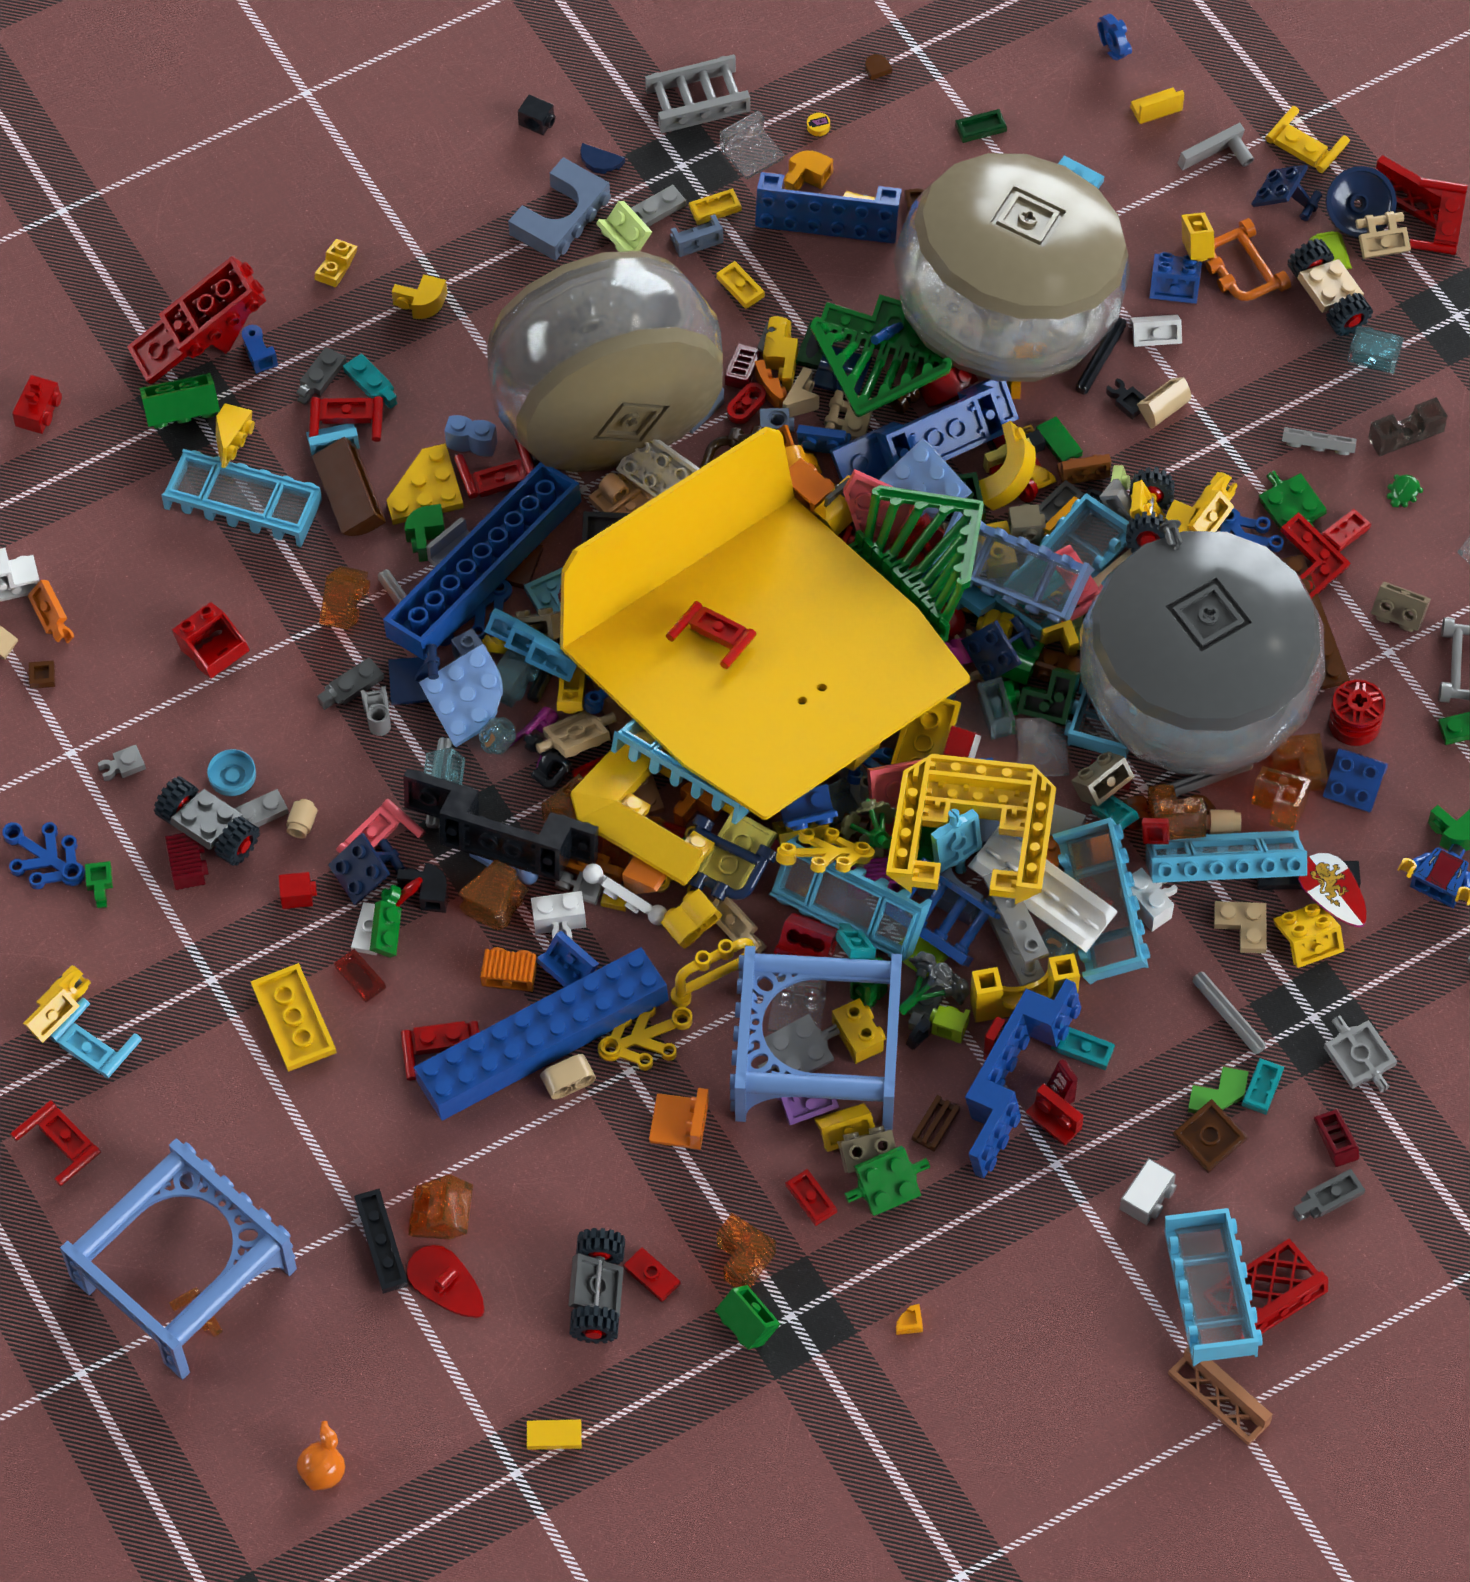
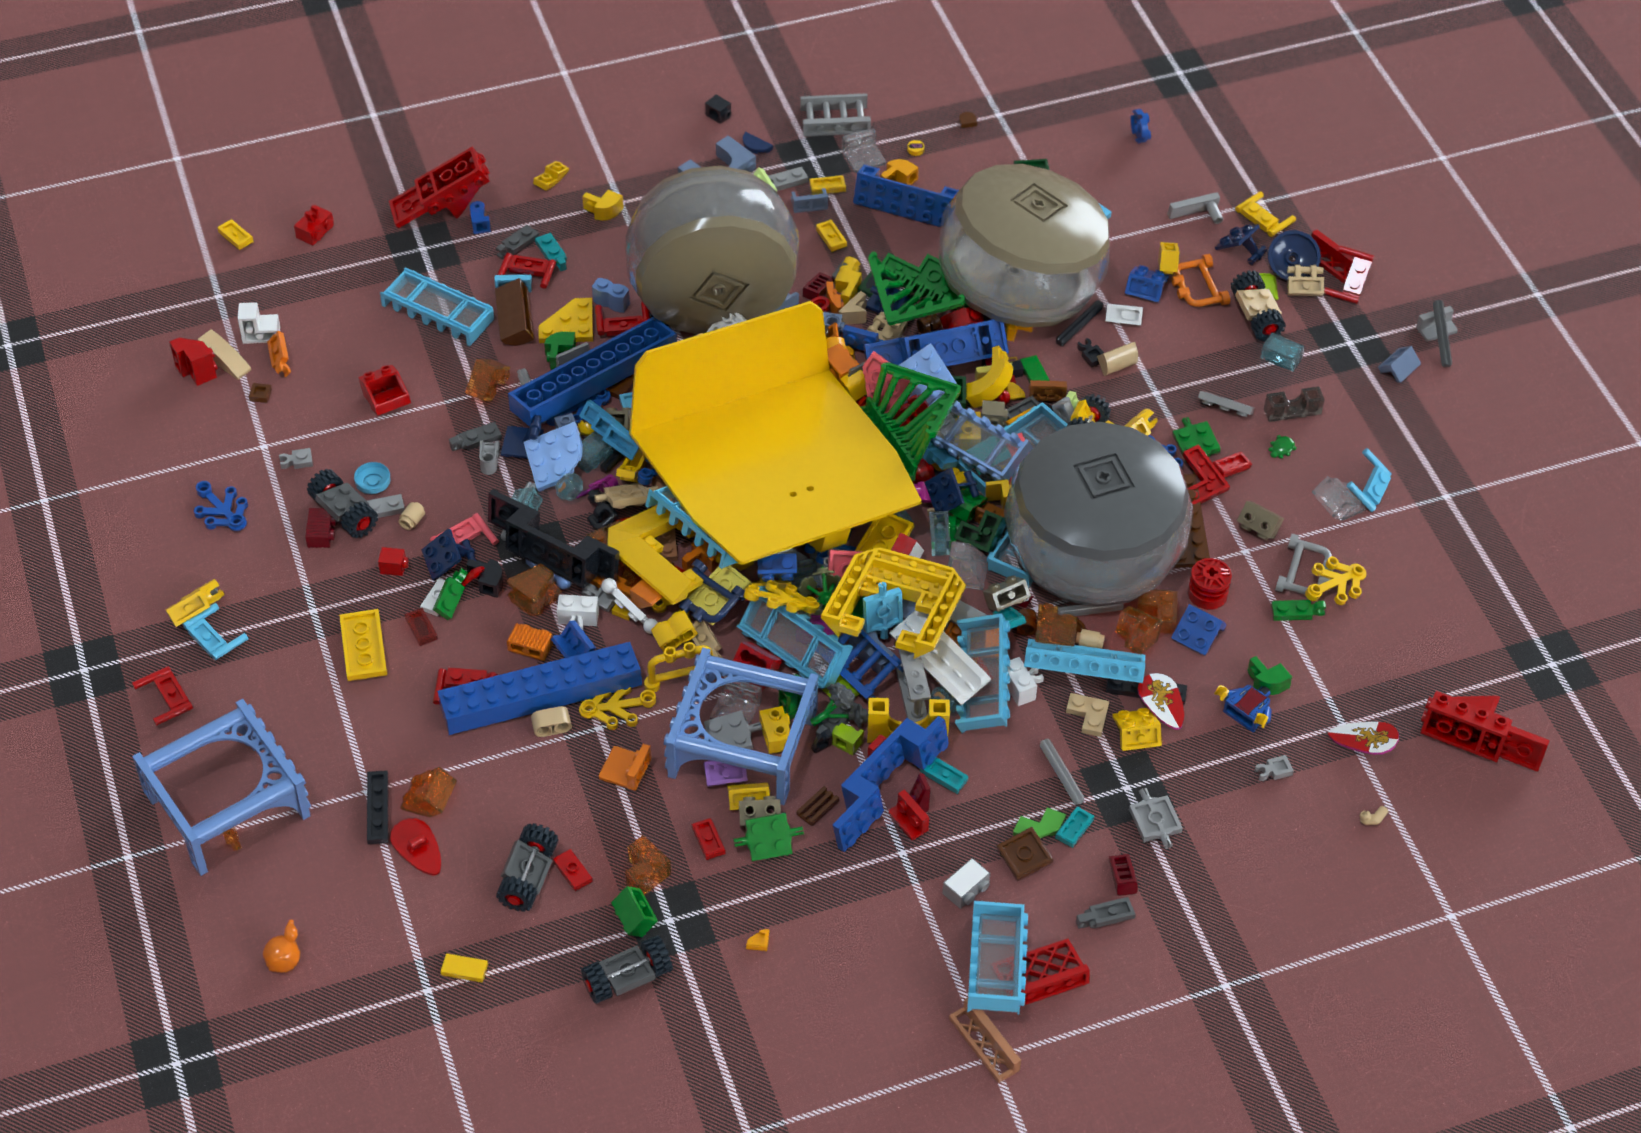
camera: 10 degrees right, 10 degrees down
(99, 879) = (254, 528): green plate -> none
(179, 400) = (412, 237): green brick -> none
(232, 428) = (443, 262): yellow slope -> none
(715, 628) = (744, 437): red plate -> none
(760, 1397) = (627, 970): none -> plate
(855, 942) = (787, 664): teal hinge -> none
(886, 333) = (925, 278): blue piece -> none
(1155, 831) = (1035, 633): red tile -> none
(1157, 105) = (1162, 175): yellow panel -> none
(1172, 533) = (1090, 418): dark grey piece -> none

